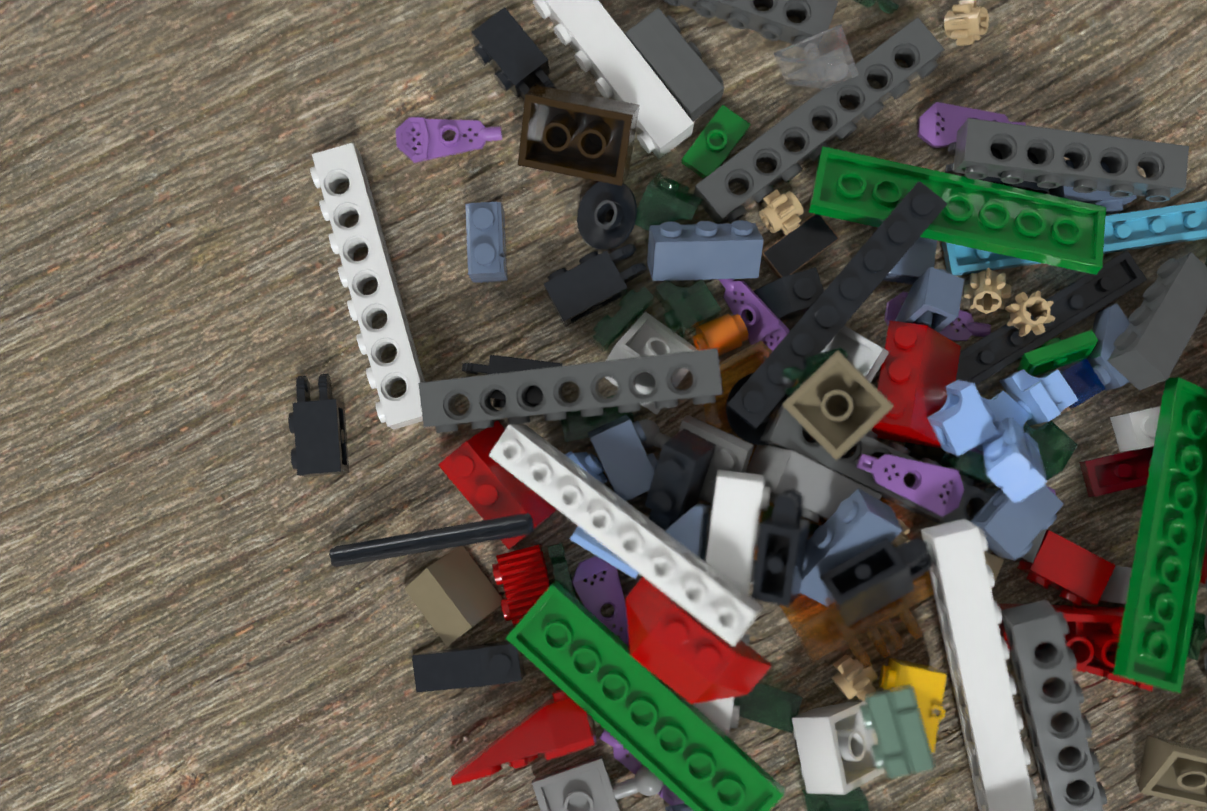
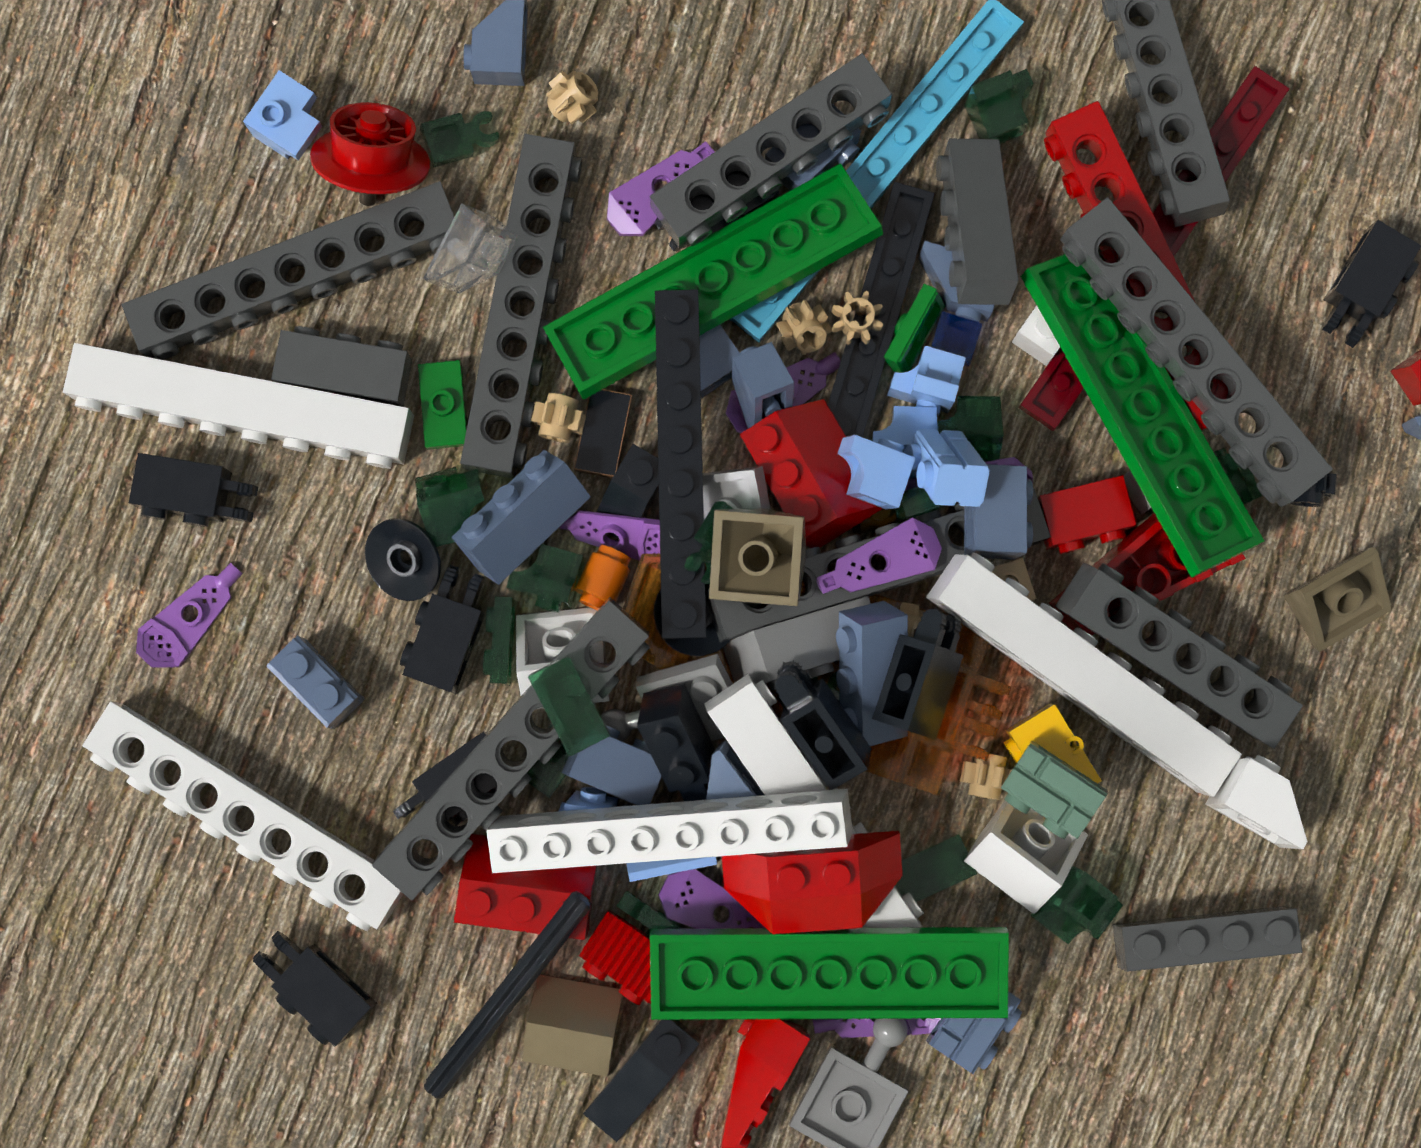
camera: 45 degrees left, 0 degrees up
(577, 134) = (312, 512): dark brown brick -> none
(632, 392) = (569, 705): none -> clear green plate

